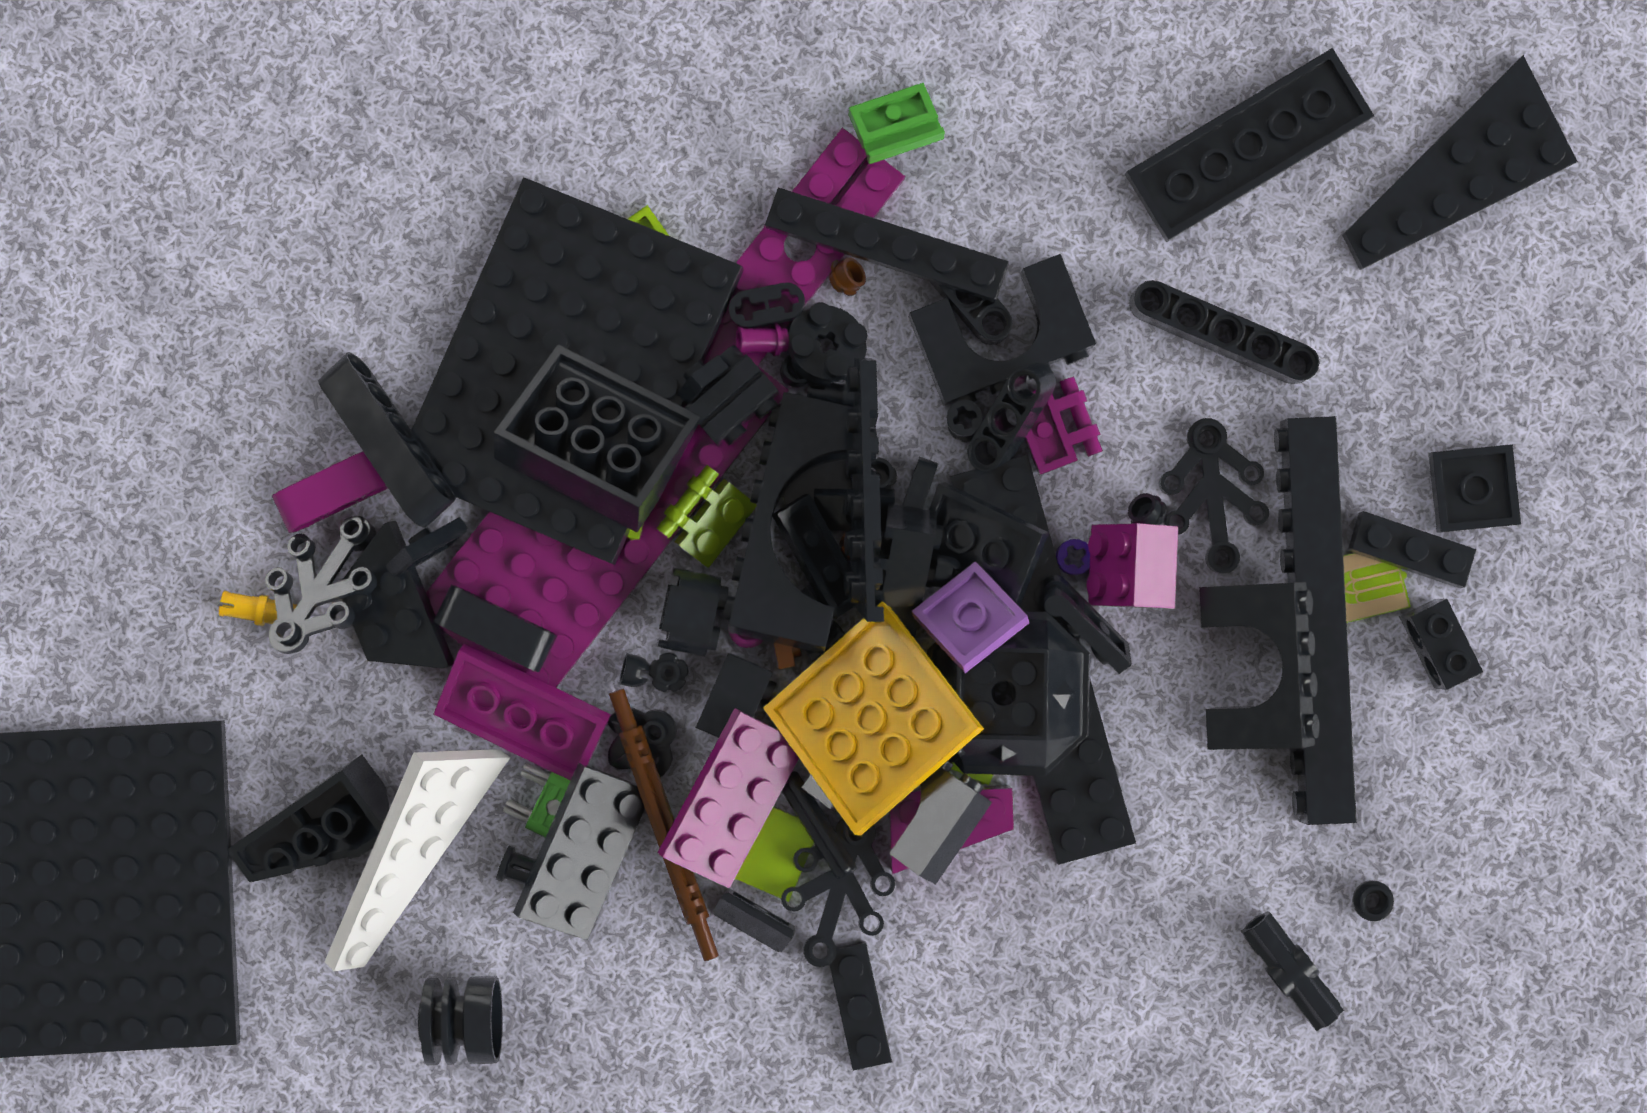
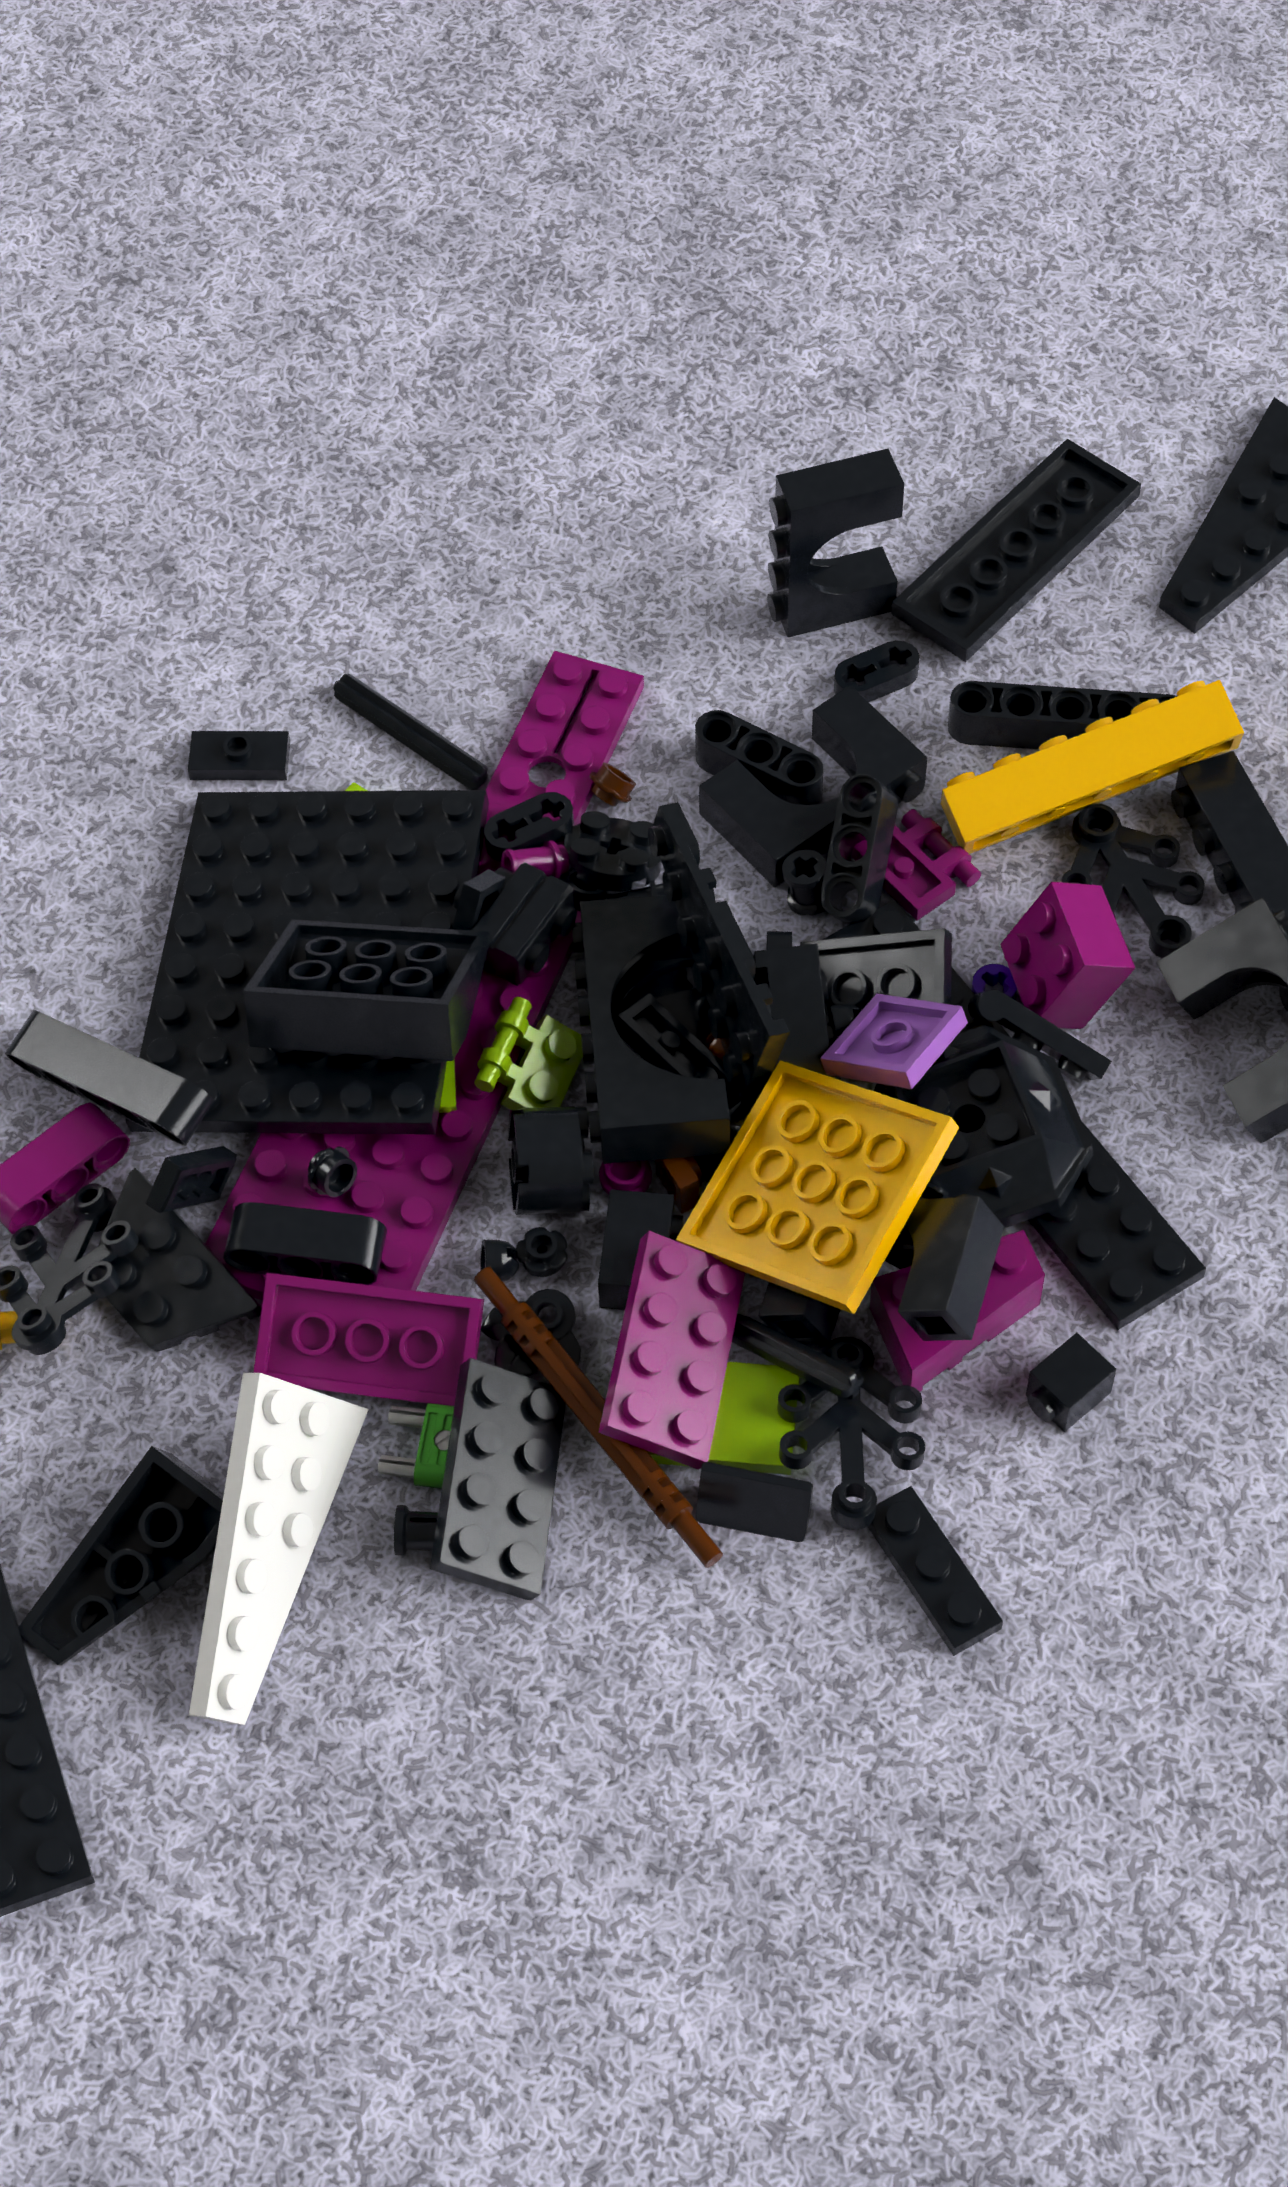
camera: 15 degrees left, 30 degrees down
(457, 1020) = (401, 1726): black wheel -> none
(530, 571) = (332, 1172): none -> black plate
(565, 146) = (239, 755): none -> black plate
(705, 168) = (410, 732): none -> black axle
(887, 245) = (647, 727): black plate -> none
(896, 123) = (614, 627): bright green plate -> none
(1002, 904) = (1069, 1383): none -> black brick
(1091, 129) = (810, 511): none -> black arch
(1094, 240) = (876, 672): none -> black beam
(1220, 398) = (1091, 766): none -> yellow brick

